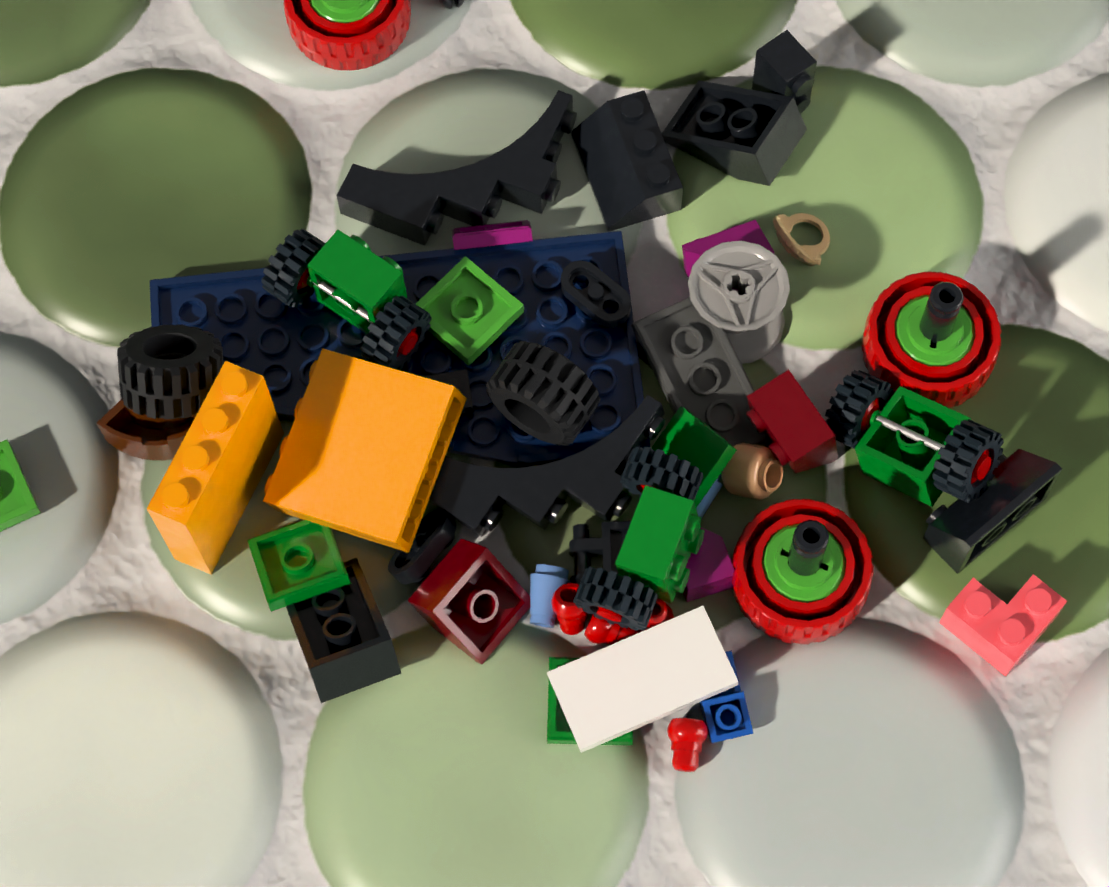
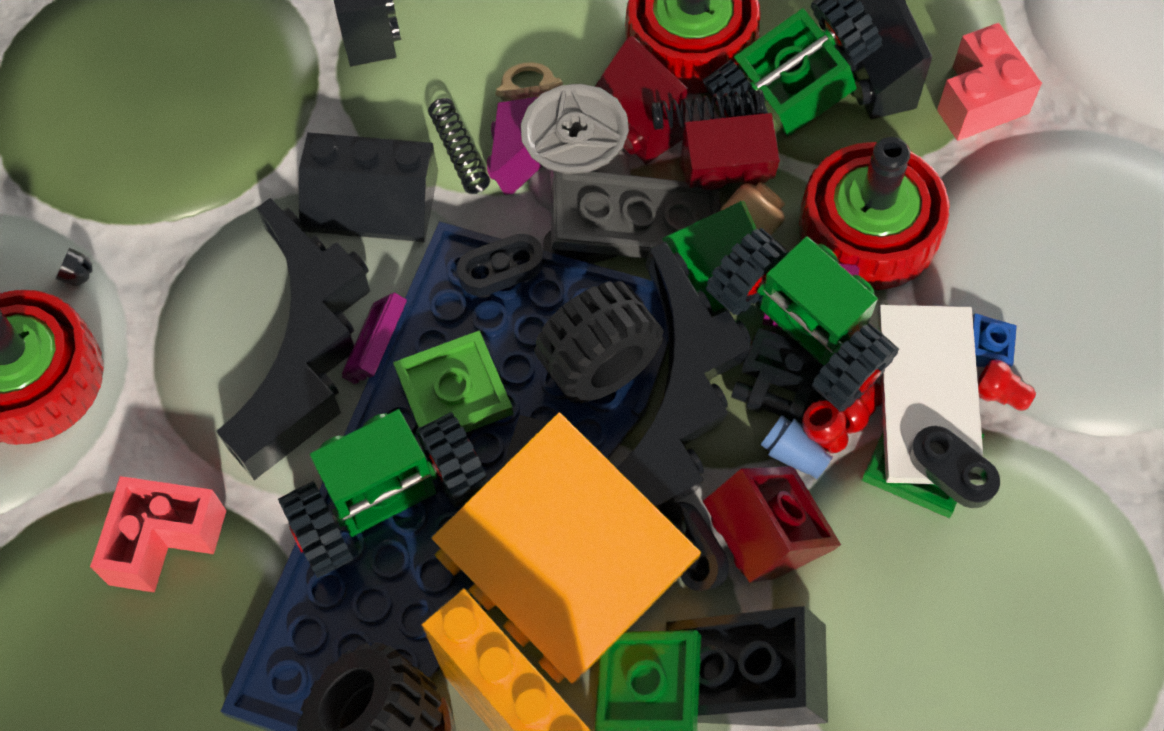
camera: 65 degrees left, 5 degrees down
(260, 157) = (147, 521): none -> coral brick
(576, 716) = (951, 468): none -> black plate
(682, 239) = (444, 116): none -> black piece
(737, 130) = (388, 84): black slope -> none
(815, 333) = (636, 82): none -> dark red slope
(841, 421) = (756, 100): none -> black piece

